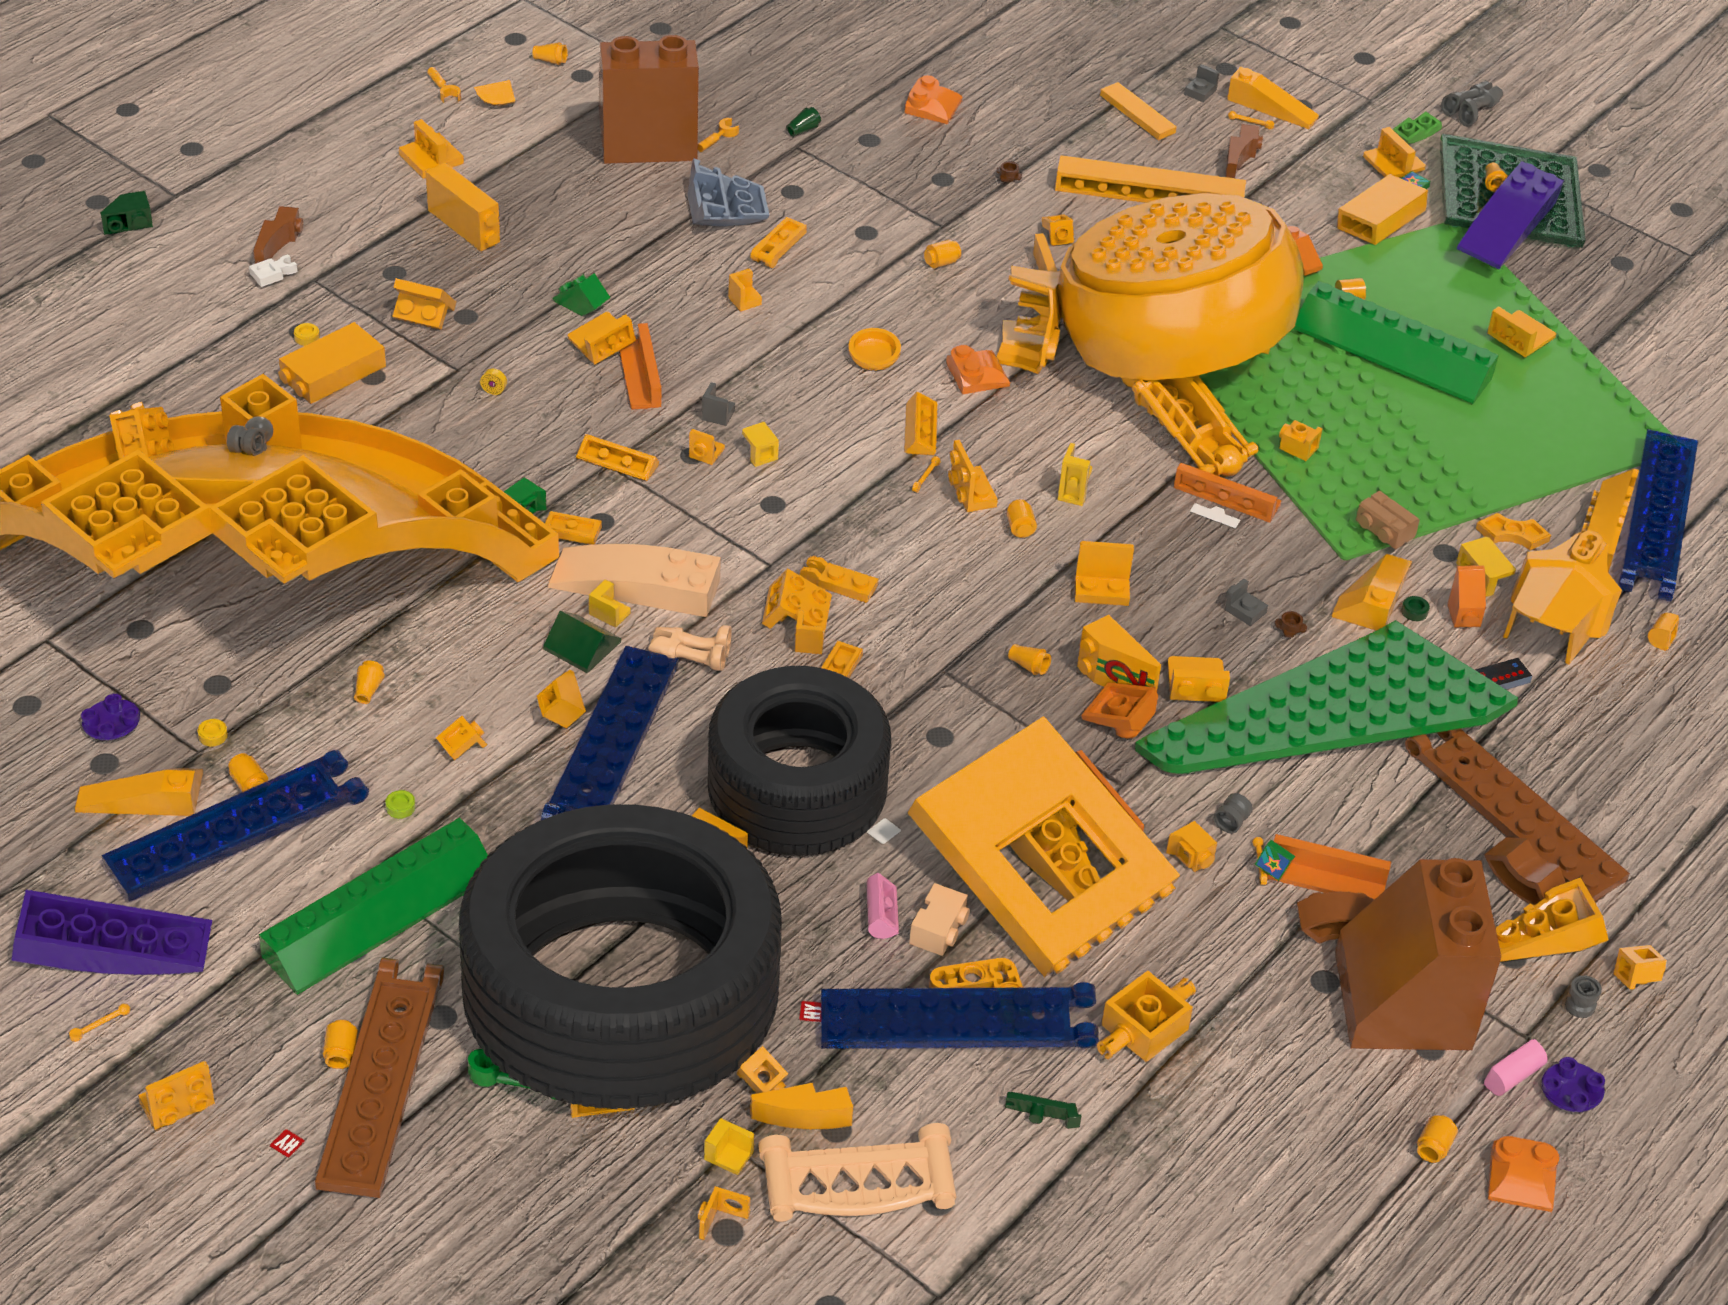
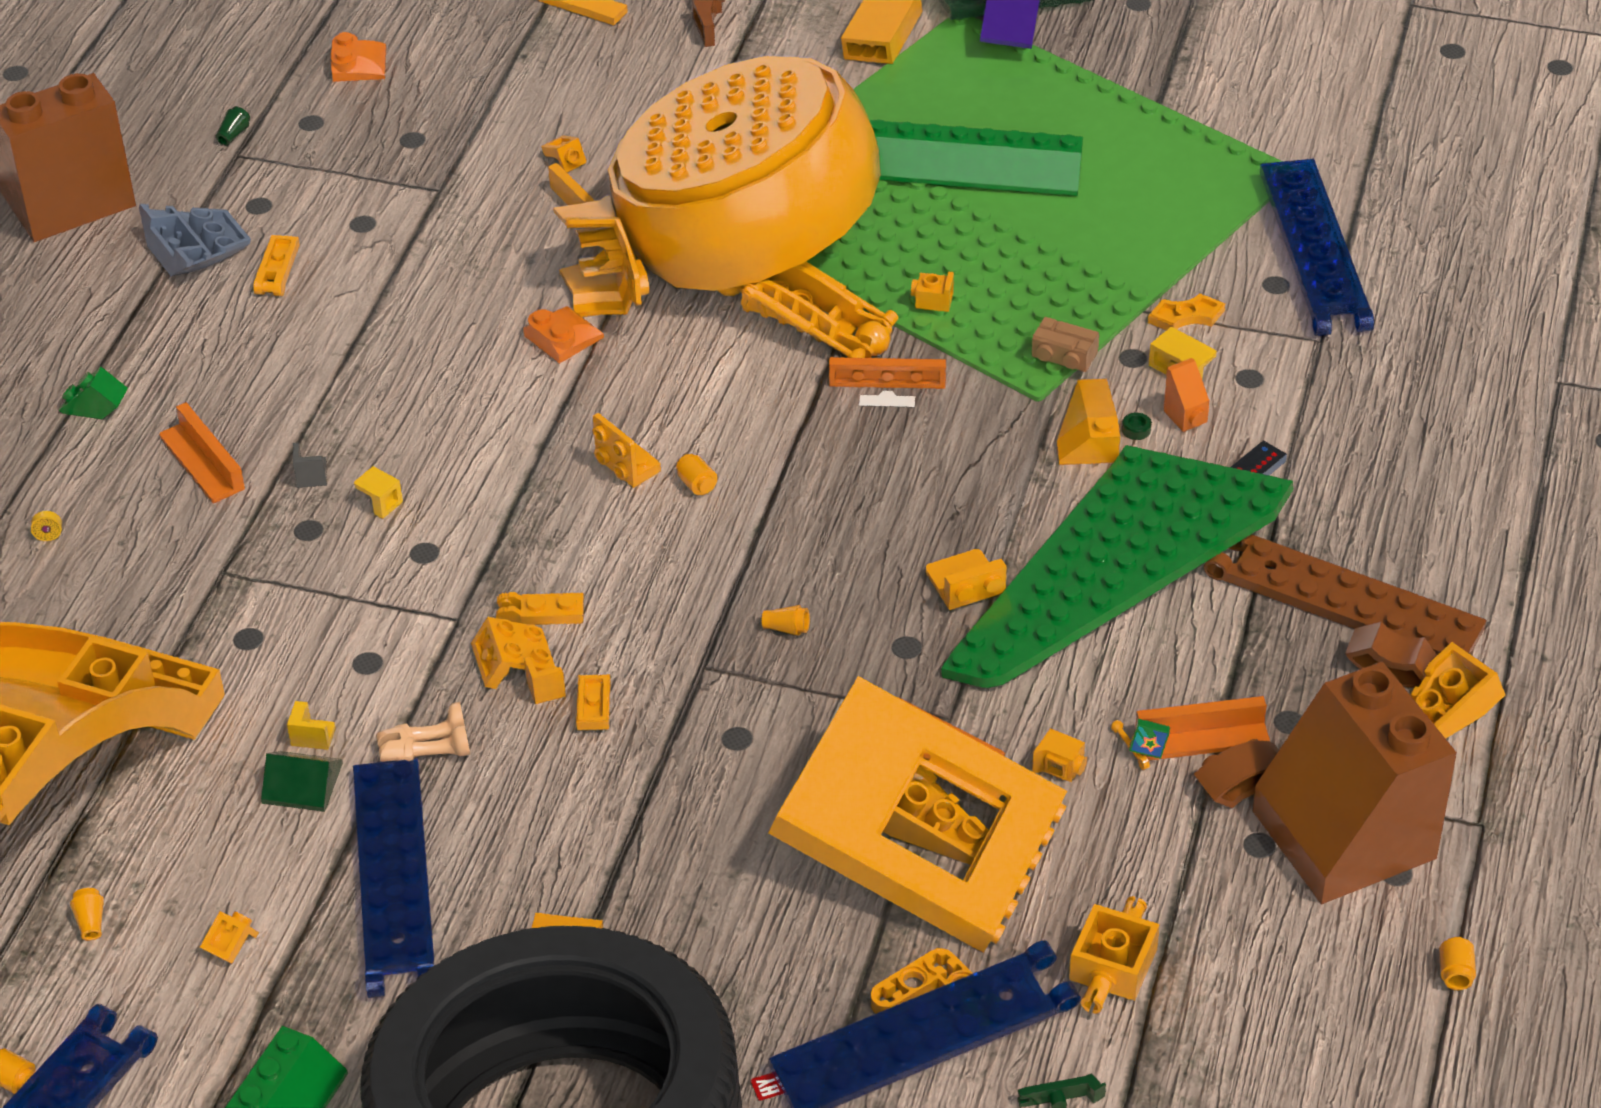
camera: 20 degrees left, 0 degrees up
(400, 804) = (199, 1036): lime tile -> none
(528, 495) = (157, 637): green window -> none
(562, 700) = (319, 851): light orange slope -> none
(574, 527) = (226, 655): light orange plate -> none
(603, 336) = (141, 433): light orange bracket -> none
(617, 458) = (228, 562): light orange slope -> none
(642, 575) = (331, 678): light nougat slope -> none
(702, 447) = (319, 516): light orange bracket -> none
(724, 130) = (147, 163): light orange piece -> none
(742, 292) = (266, 333): light orange panel -> none
(793, 806) = (625, 875): black tyre -> none
(874, 348) = (443, 346): light orange piece -> none
(882, 907) = (781, 944): bright pink brick -> none
(883, 831) = (735, 862): white sticker -> none
(921, 425) = (535, 412): light orange slope -> none
(935, 461) = (571, 445): light orange hinge -> none
(939, 923) = (848, 934): light nougat brick -> none
(942, 253) = (458, 219): light orange brick -> none
(1009, 171) = (480, 108): reddish brown plate -> none
(1074, 478) = (731, 412): yellow panel -> none
(1103, 573) = (814, 502): light orange bracket -> none
(1114, 656) = (883, 589): light orange slope -> none
(1123, 707) = (910, 637): orange slope -> none
(1137, 182) = (627, 75): light orange brick -> none
(1233, 813) = (1079, 705): dark grey wheel -> none
(1243, 604) = (969, 484): dark grey bracket -> none
(1291, 624) = (1026, 486): reddish brown plate -> none
(1354, 286) = (898, 113): light orange brick -> none
(1515, 1068) = (1491, 861): bright pink brick -> none
(1519, 331) = (1084, 106): light orange bracket -> none
(1523, 1173) = (1554, 964): orange slope -> none
(1568, 590) = (1276, 353): light orange piece -> none
(1573, 1086) = (1552, 856): dark purple dish -> none
(1583, 996) = (1513, 761): dark grey wheel -> none
(1610, 509) = (1272, 271): light orange wedge -> none
(1639, 965) = (1547, 709): light orange brick -> none
(1664, 631) = (1384, 362): light orange brick -> none

